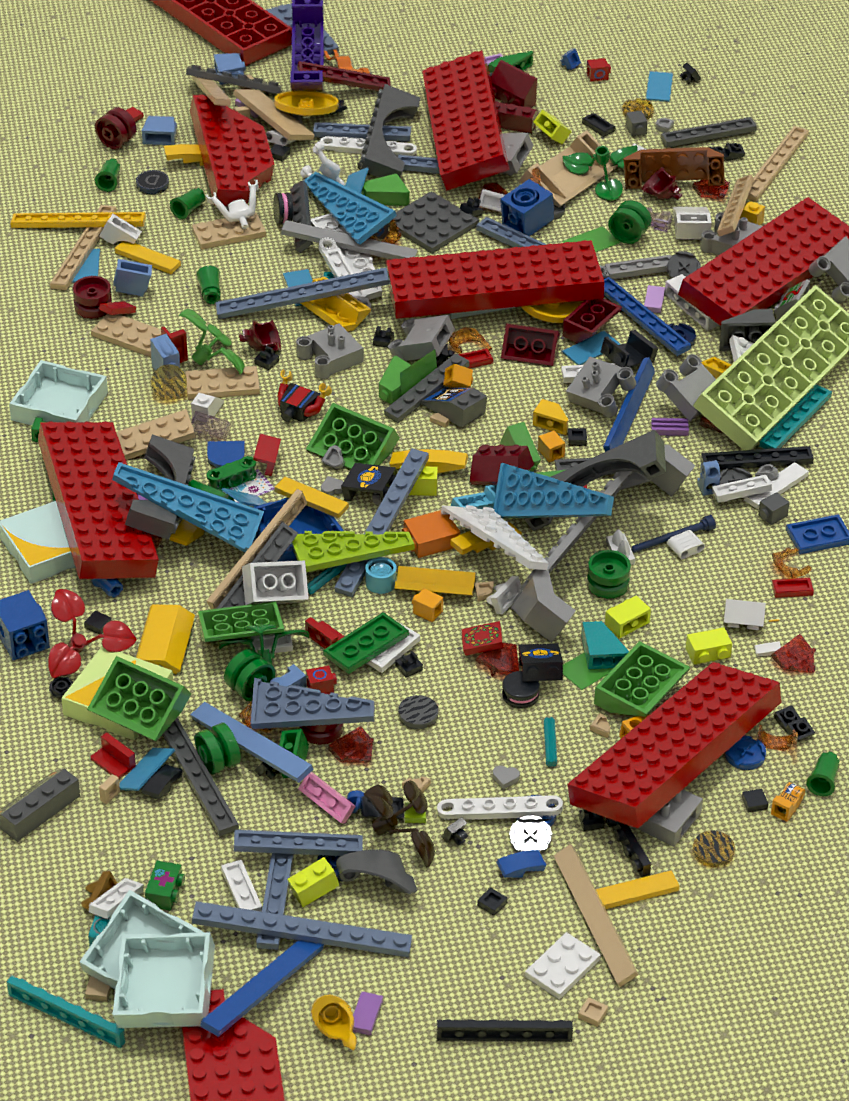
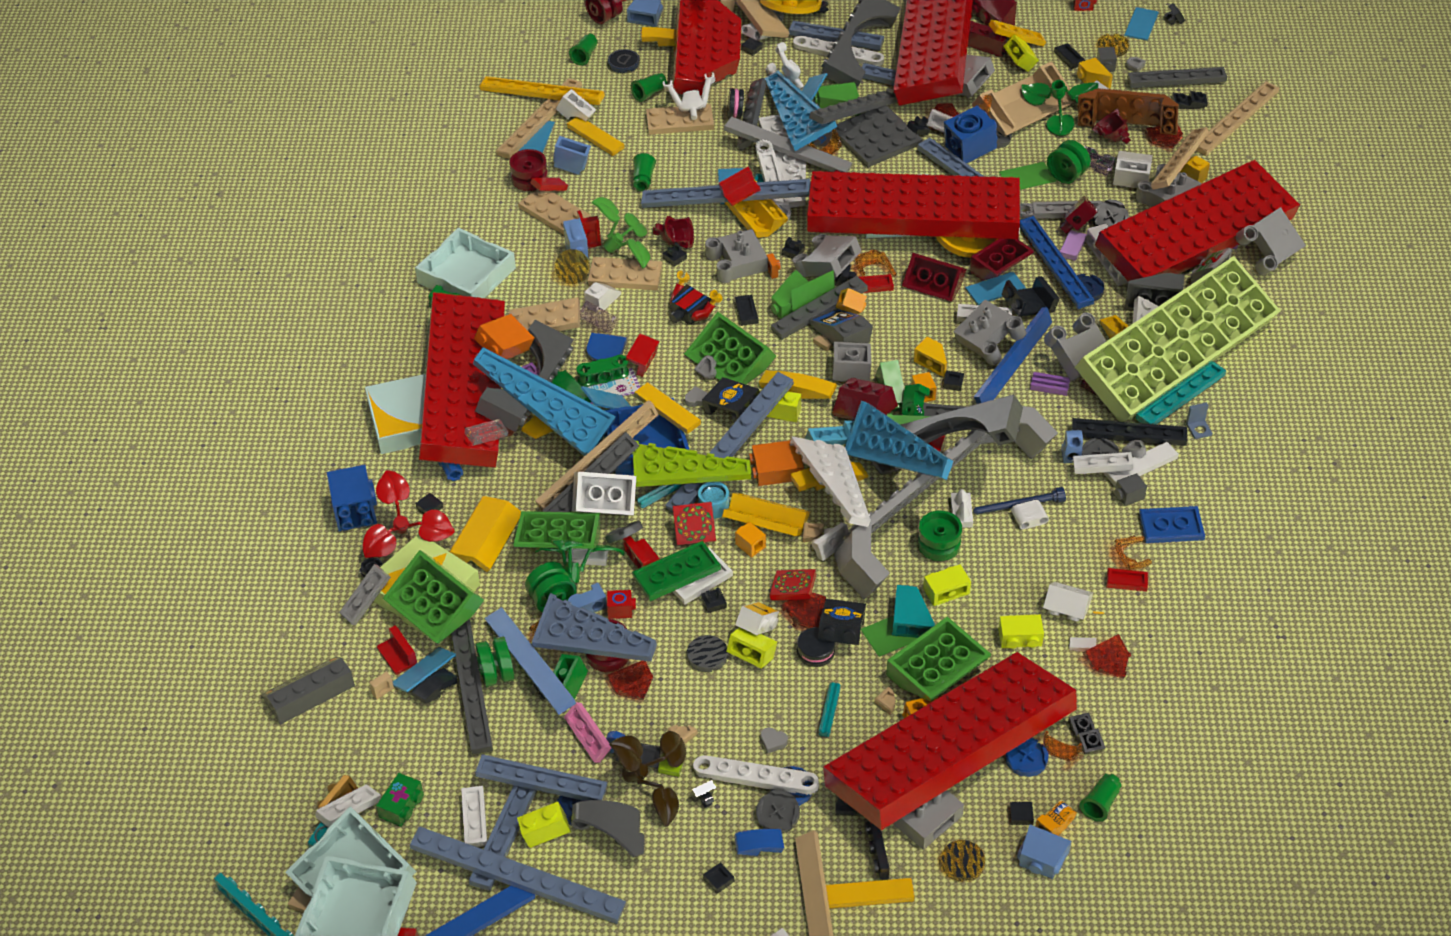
camera: 15 degrees right, 5 degrees up
(66, 710) = (364, 594): none -> light grey tile
(130, 451) = (504, 337): none -> orange brick
(142, 542) = (486, 432): none -> clear tile
(301, 617) = (623, 532): none -> dark grey tile
(317, 284) = (739, 186): none -> red panel
(354, 399) = (746, 310): none -> black tile
(369, 598) = (694, 523): none -> tile
(370, 356) = (773, 266): none -> orange plate
(407, 195) = (853, 107): none -> dark grey plate
(459, 671) = (757, 618): none -> white brick
(460, 698) = (752, 648): none -> neon yellow brick
(475, 431) = (851, 361): none -> light grey slope
(537, 106) = (1009, 30): none -> yellow tile
(547, 456) = (914, 399): none -> green leg
(627, 135) = (1093, 70): none -> yellow slope
(659, 264) = (1082, 208): none -> dark red torso
(785, 828) = (1043, 852): none -> medium blue torso
(816, 438) = (1196, 418): none -> sand blue bracket

